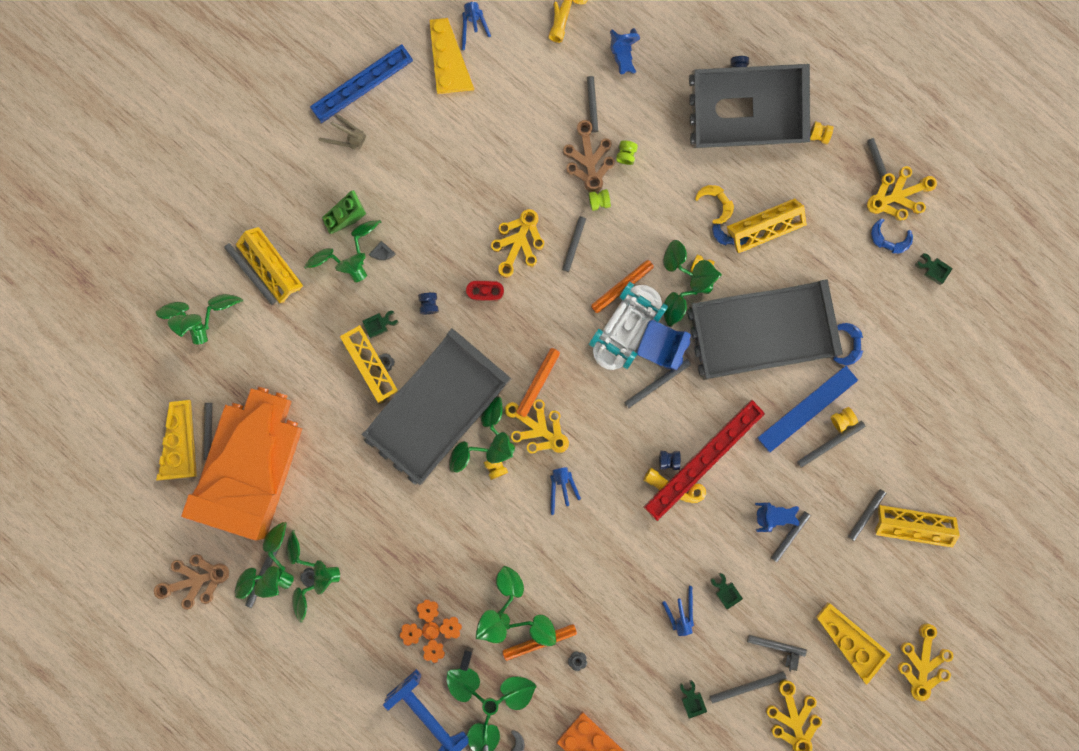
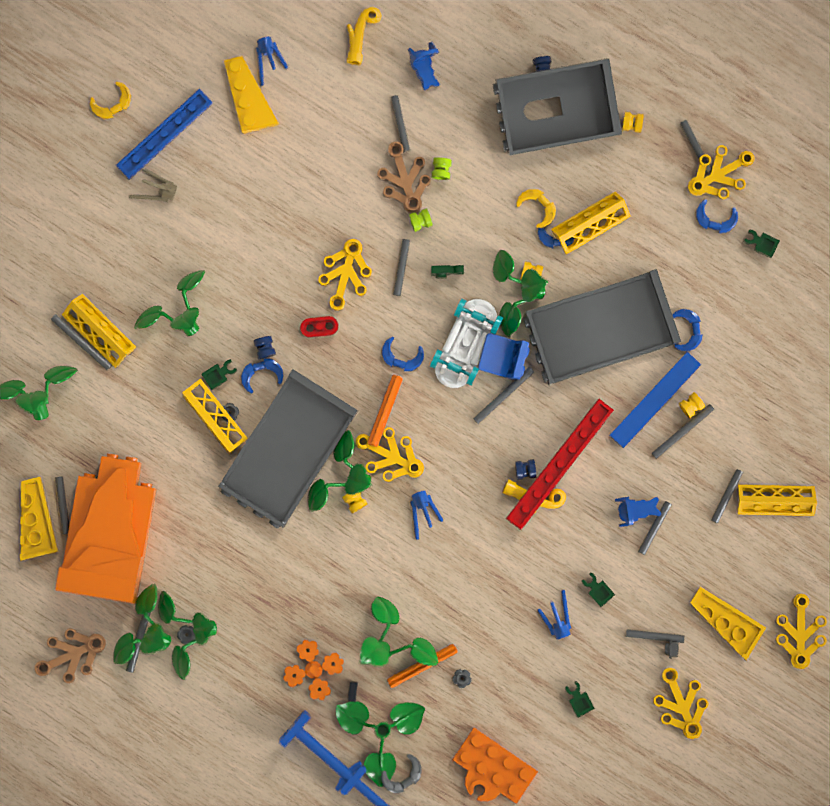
camera: 15 degrees left, 0 degrees up
(307, 56) = (106, 113): none -> yellow piece
(344, 213) = (167, 269): bright green slope -> none
(382, 252) = (210, 302): dark grey tile -> none
(410, 324) = (267, 363): none -> blue piece
(550, 332) = (389, 357): none -> blue piece
(613, 253) = (442, 271): none -> dark green plate
(617, 290) = (451, 307): orange axle -> none
(748, 687) = (632, 680): dark grey bar -> none

